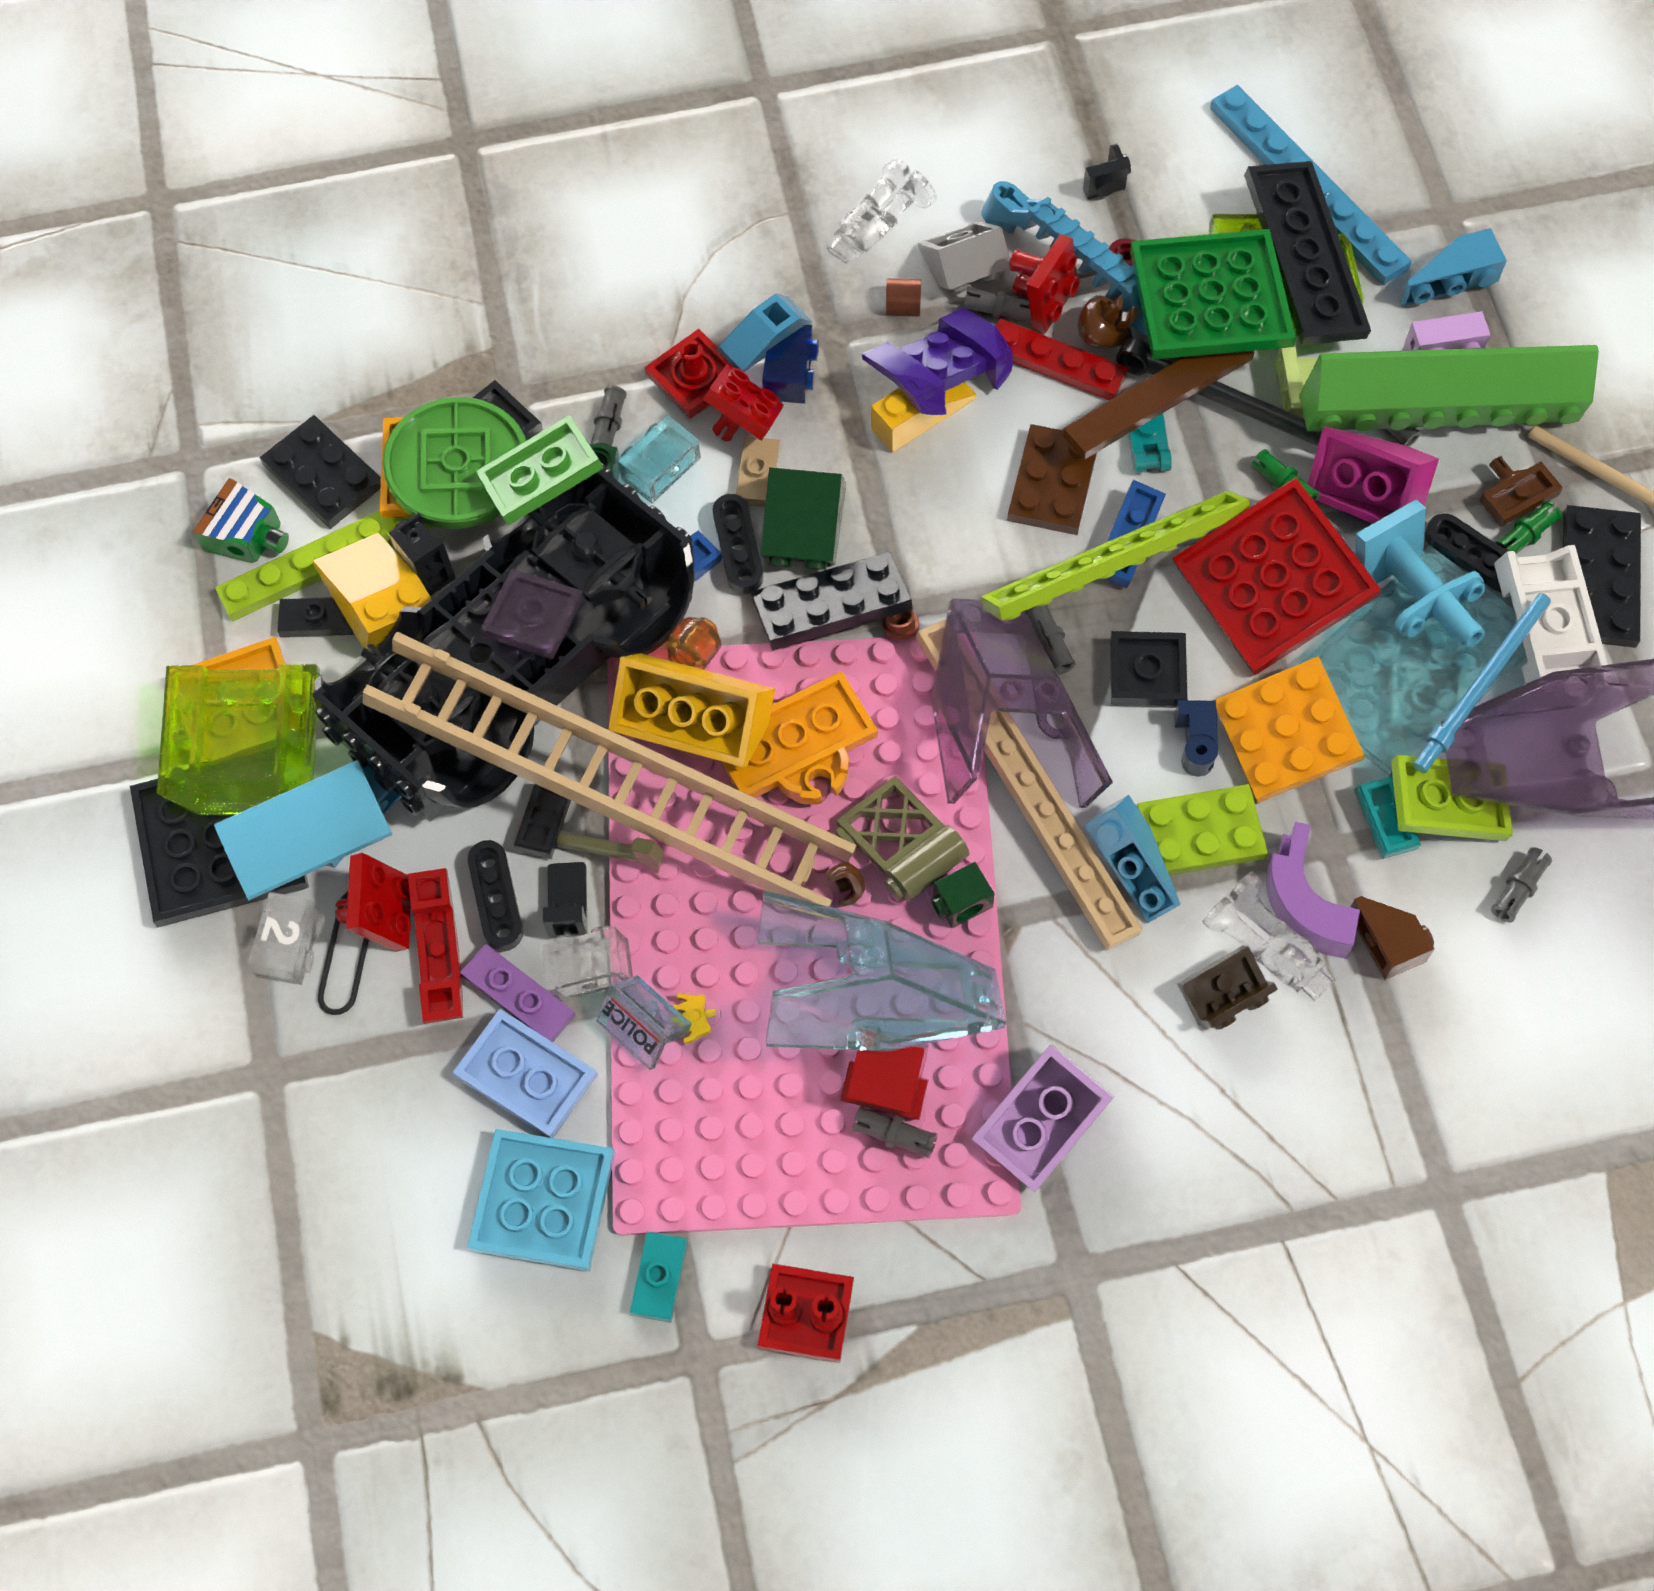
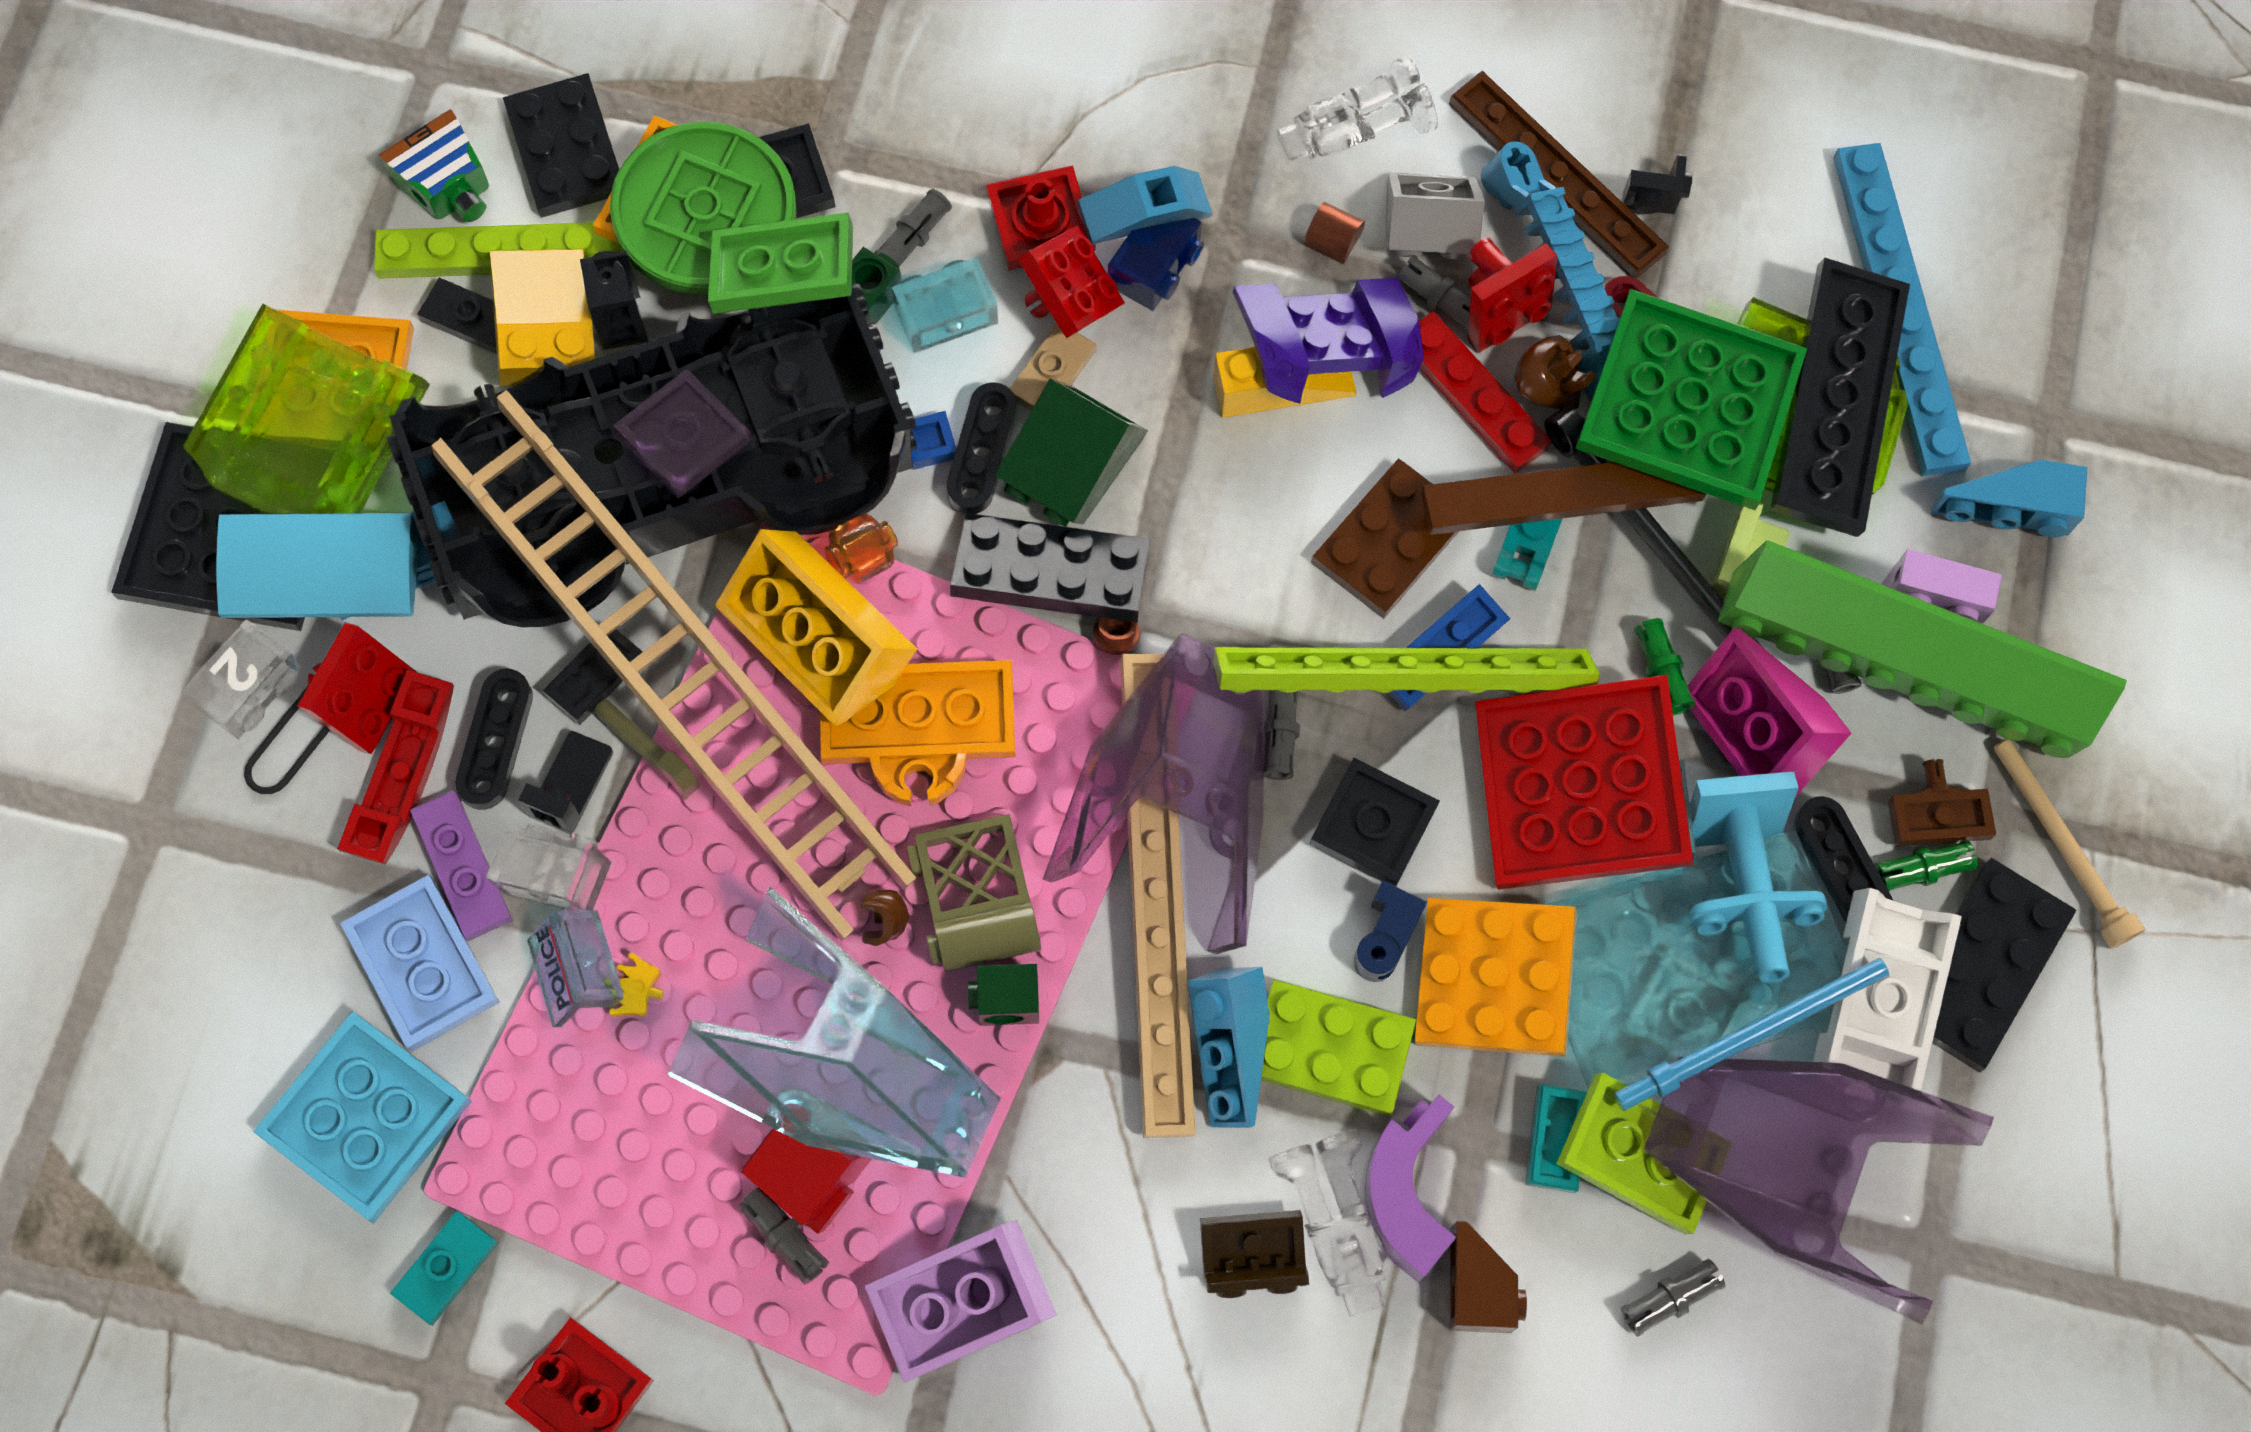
camera: 20 degrees right, 5 degrees up
(979, 178) = (1595, 206): none -> reddish brown tile

